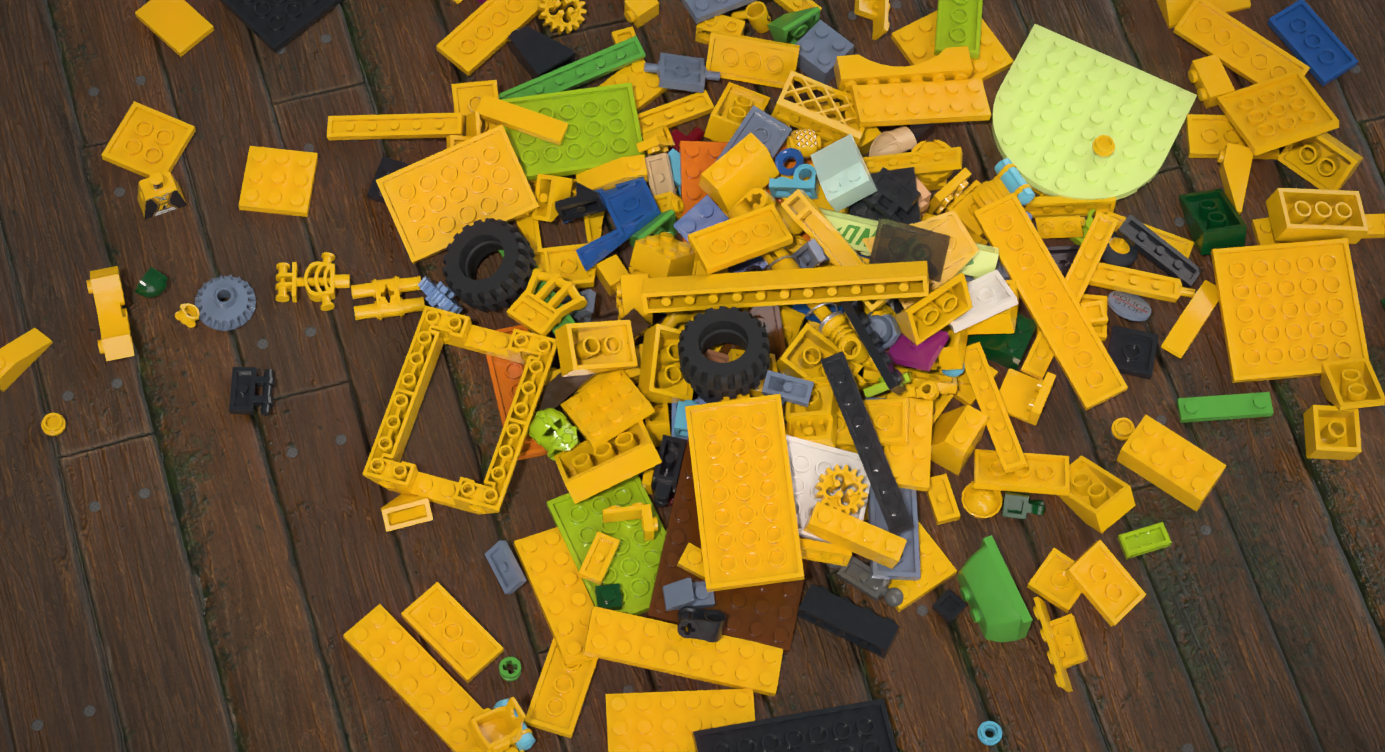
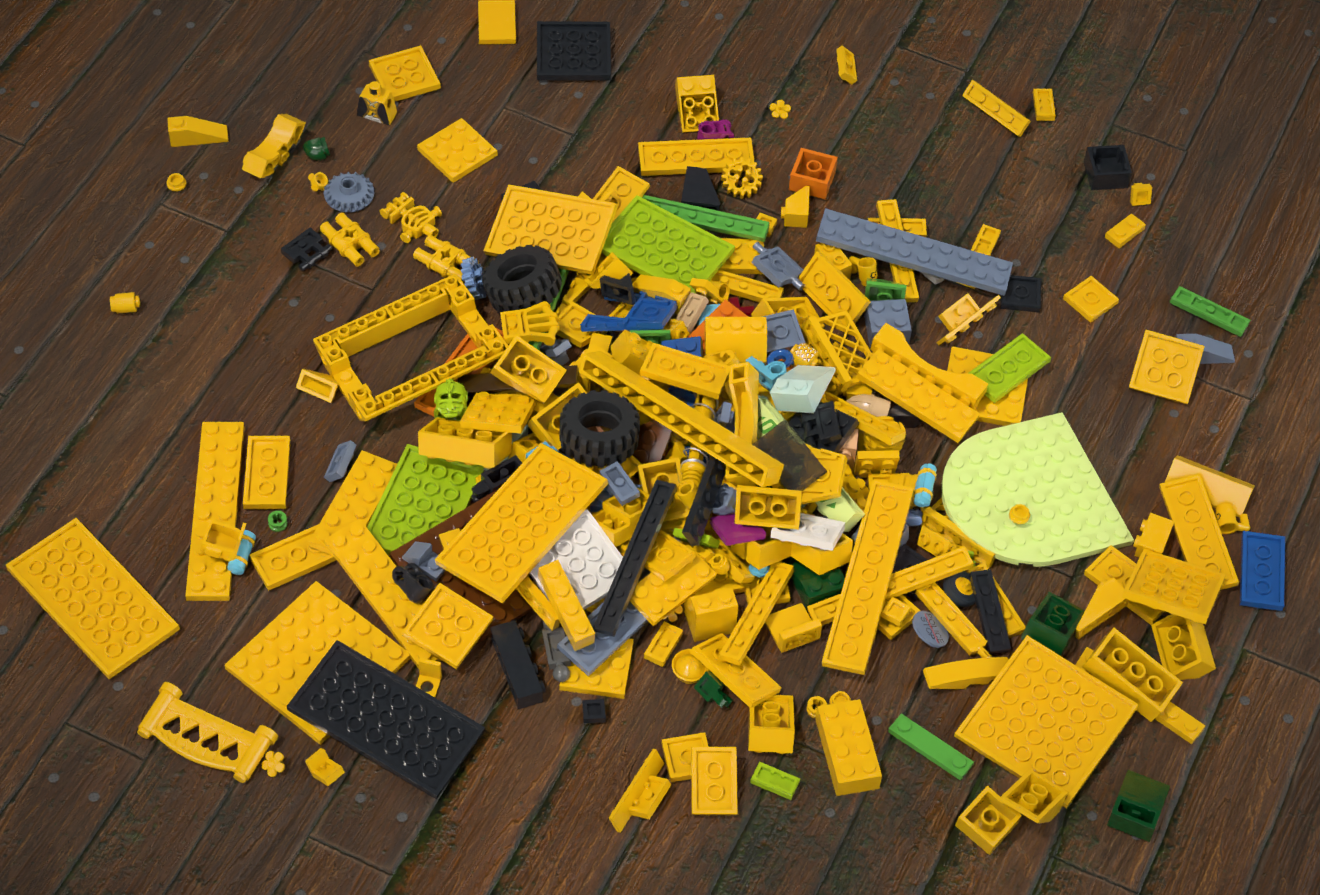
camera: 45 degrees right, 10 degrees down
(142, 582) = (124, 302): none -> yellow brick
(285, 358) = (349, 239): none -> yellow pin
(394, 126) = (558, 166): yellow plate -> none
(522, 119) = (638, 215): yellow tile -> none
(599, 558) = (399, 498): yellow plate -> none
(608, 596) = (380, 525): dark green plate -> none
(635, 511) = (453, 492): yellow bracket -> none
(766, 637) = (447, 626): none -> yellow plate
(787, 690) = (429, 672): none -> yellow bracket
(853, 499) = (575, 574): yellow gear -> none
(989, 726) = (533, 803): medium azure plate -> none
(993, 595) = (628, 724): bright green windscreen -> none
(1103, 449) = (812, 701): none -> yellow bush
(1133, 351) = (900, 659): black plate -> none
(1249, 16) = (1227, 520): none -> yellow piece

